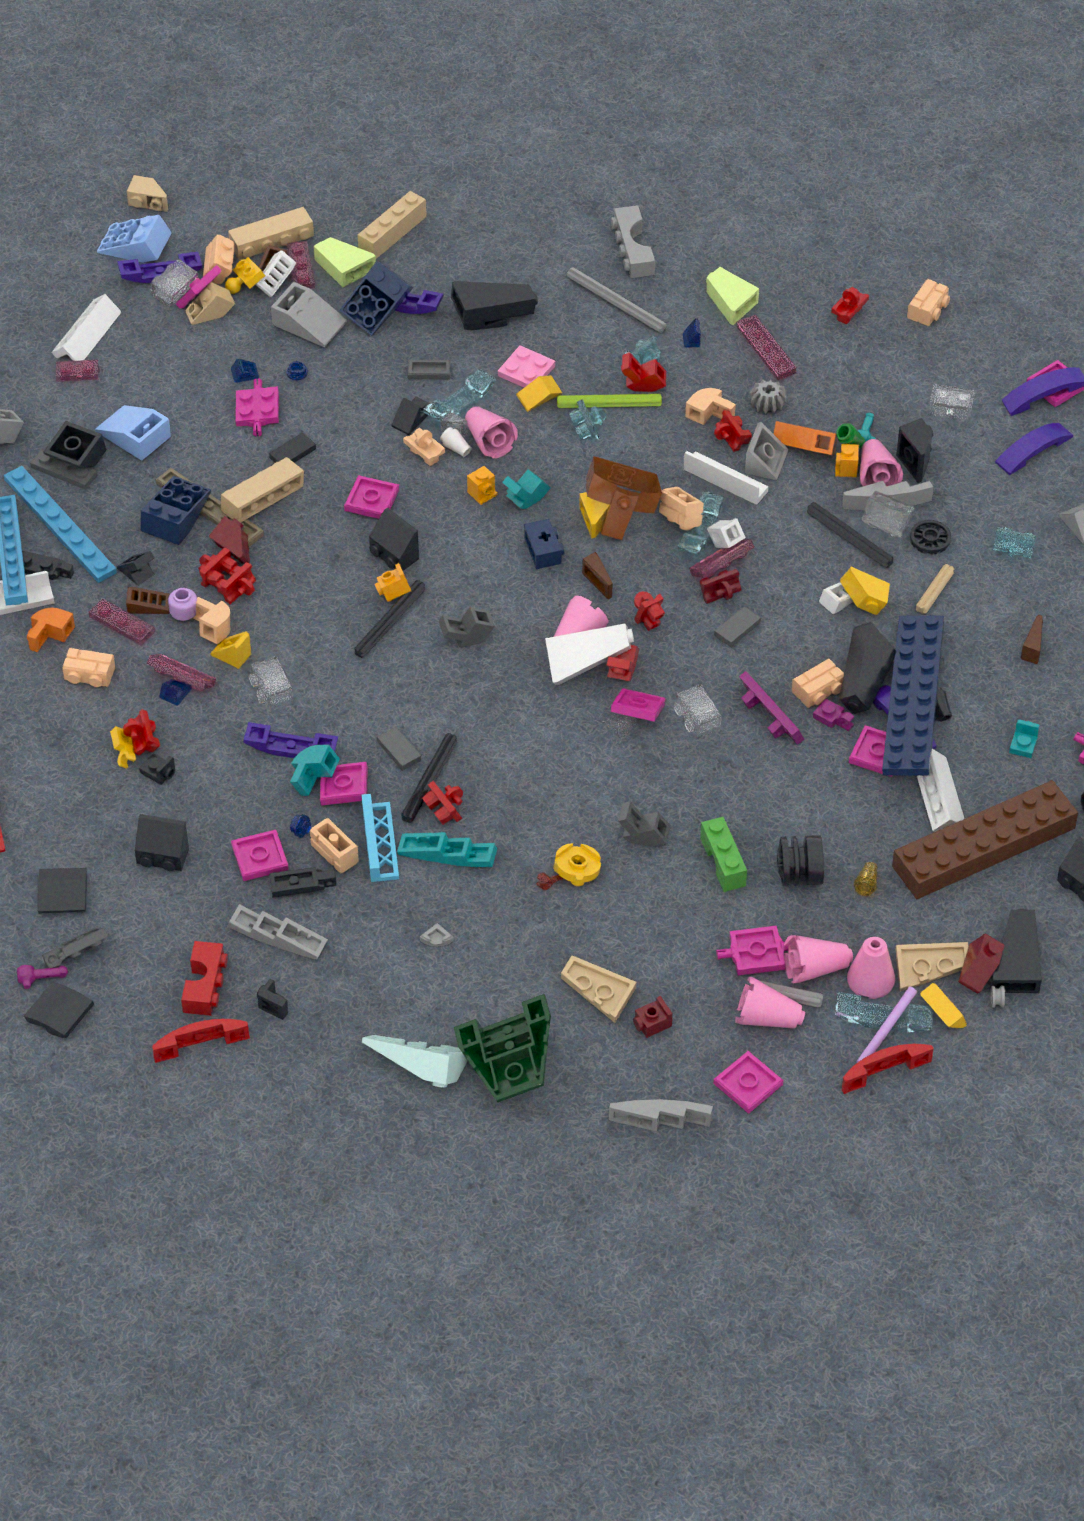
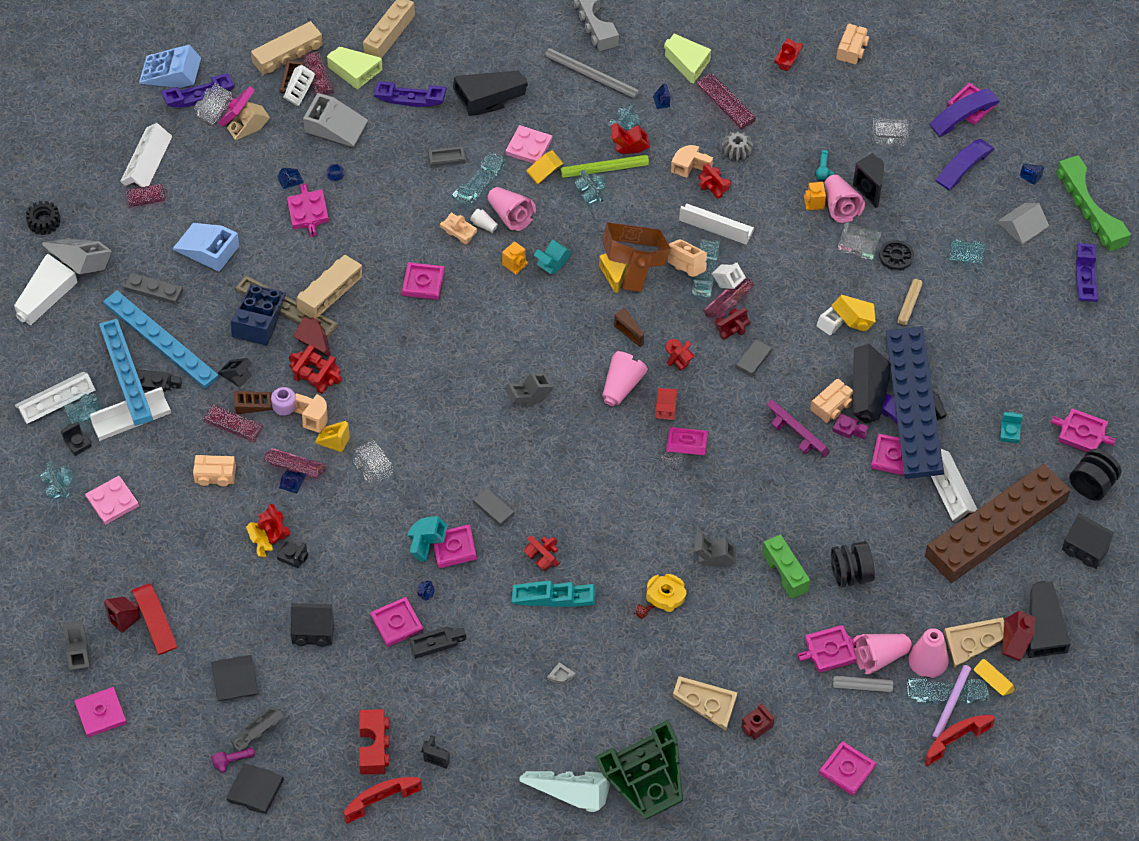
camera: 10 degrees left, 5 degrees up
(49, 623) = (172, 433): orange brick -> none
(76, 446) = (161, 267): black slope -> none
(147, 194) = (172, 24): tan slope -> none
(219, 253) = (247, 75): light nougat brick -> none
(247, 273) = (273, 87): yellow plate -> none
(277, 933) = (427, 691): light grey slope -> none
(281, 744) = (397, 517): dark purple slope -> none
(293, 449) = (346, 245): black tile -> none
(334, 845) = (459, 605): light nougat brick -> none
(371, 837) = (488, 593): medium azure fence -> none
(376, 298) = (390, 98): dark blue slope -> none
(389, 619) = (461, 390): black axle -> none
(392, 584) = (458, 358): light orange brick -> none
(394, 541) = (452, 320): black slope -> none
(410, 415) = (440, 200): black slope -> none
(431, 774) = (524, 530): black axle -> none
(456, 422) = (479, 203): clear slope -> none
(543, 543) = (577, 304): dark blue brick -> none
(584, 650) = (634, 399): white slope -> none
(651, 1113) = (772, 809): light grey slope -> none
(697, 711) = (738, 440): clear brick -> none
(765, 454) = (746, 199): light grey slope -> none
(767, 1007) = (848, 699): bright pink cone -> none
(806, 438) = (776, 180): orange slope -> none
(849, 435) = (814, 174): green cone -> none
(850, 534) = (830, 262): black axle -> none
(866, 880) = (908, 572): clear yellow cone -> none
(917, 494) = (866, 219): light grey slope -> none
(997, 996) = (1036, 662): light grey bush -> none
(1032, 644) = (1001, 342): reddish brown slope -> none

